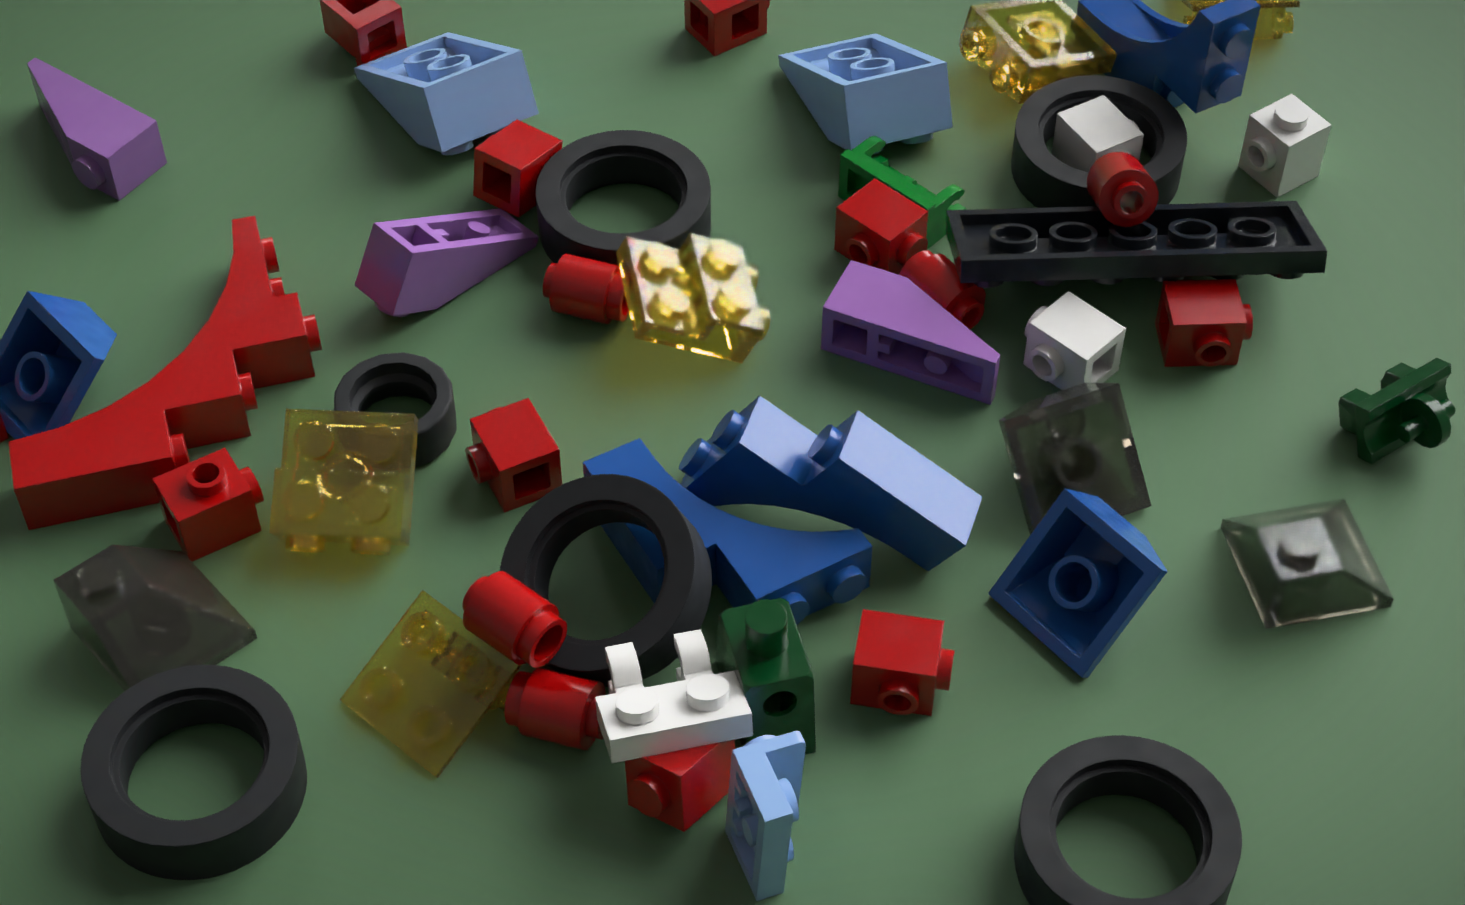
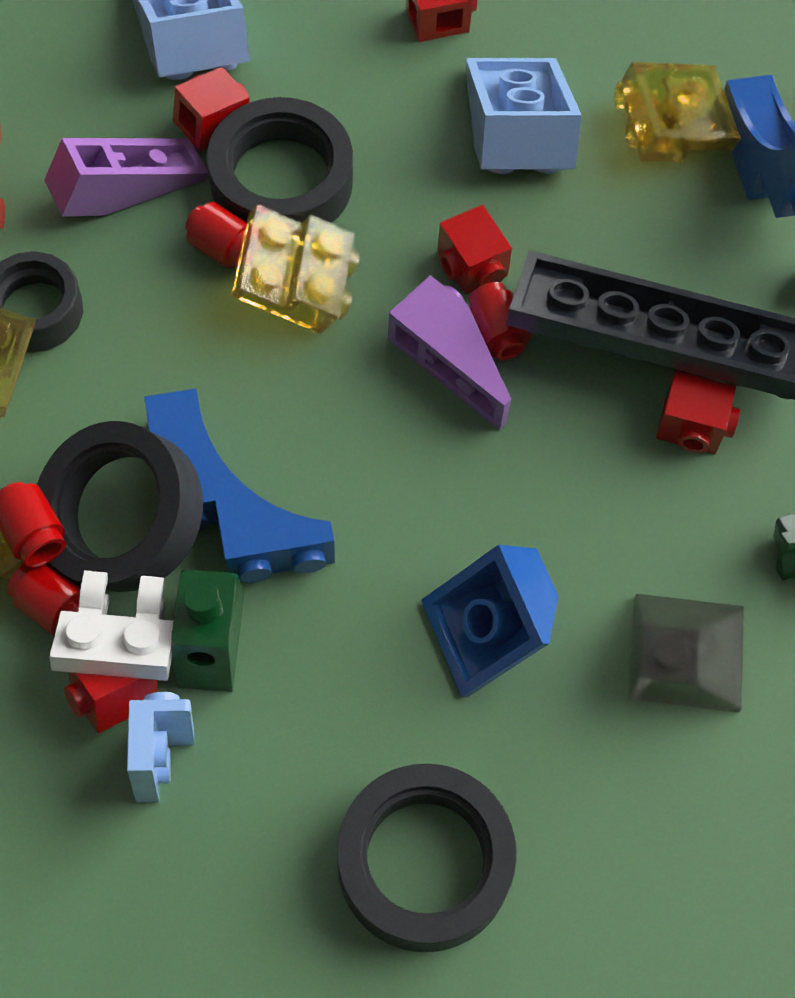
camera: 15 degrees right, 15 degrees up
(514, 454) = (104, 367): red brick -> none
(843, 474) = (334, 470): blue arch -> none
(859, 169) = (507, 212): green hinge -> none
(899, 663) = (319, 644): red brick -> none
(1055, 184) = (697, 177): black tyre -> none
(1073, 343) = (581, 402): white brick -> none
(1074, 443) = (534, 501): clear smoke slope -> none
(1093, 131) = (687, 219): white brick -> none
(1122, 189) = (674, 277): red brick -> none

